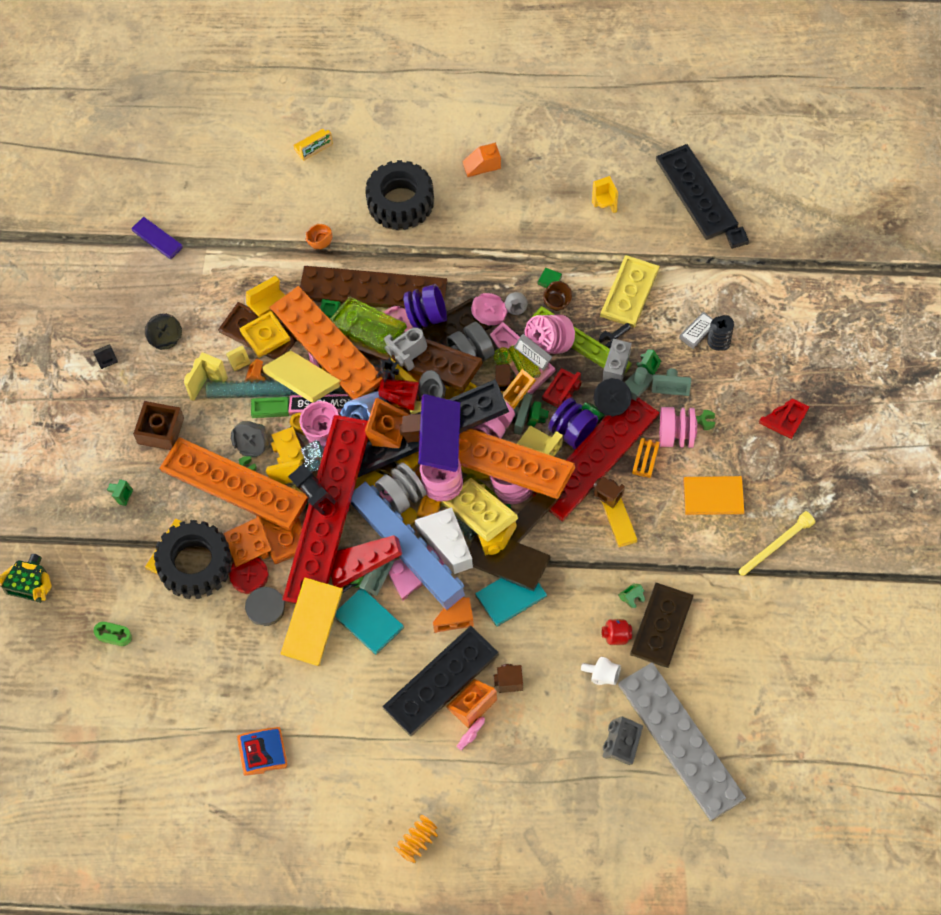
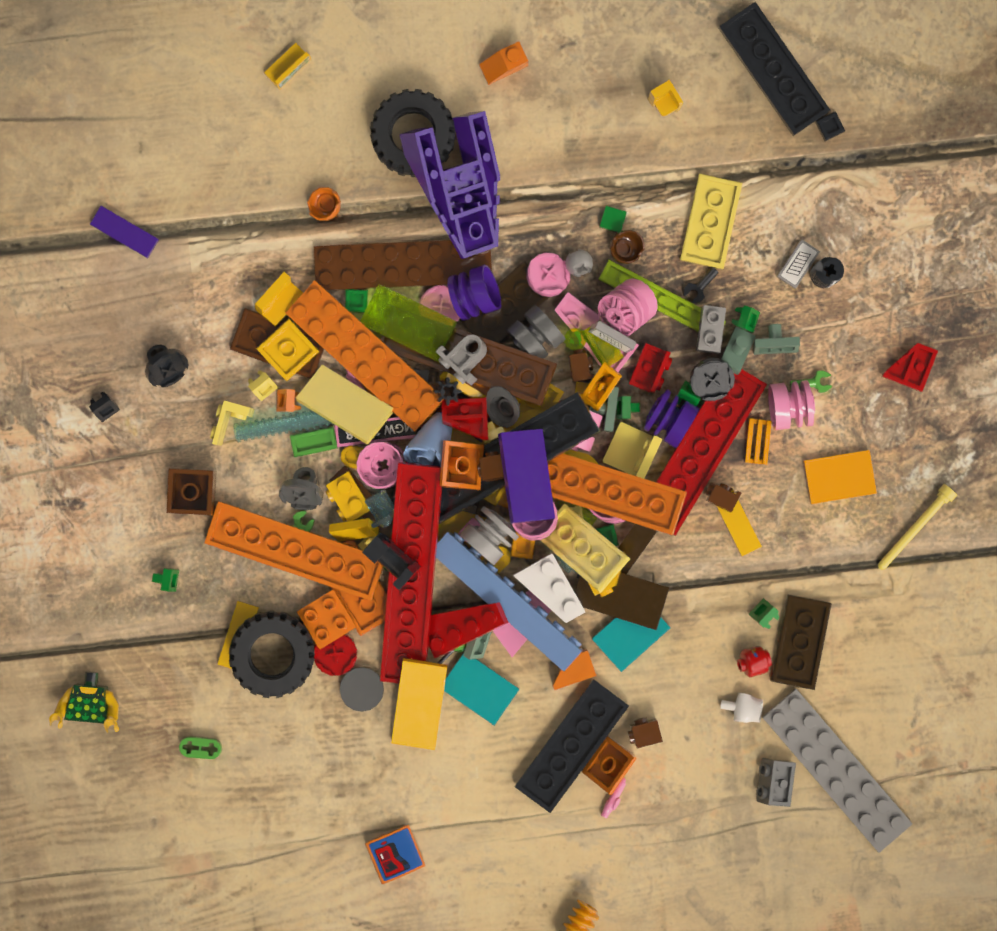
camera: 15 degrees left, 25 degrees up
(429, 237) = (463, 194): none -> dark purple wedge

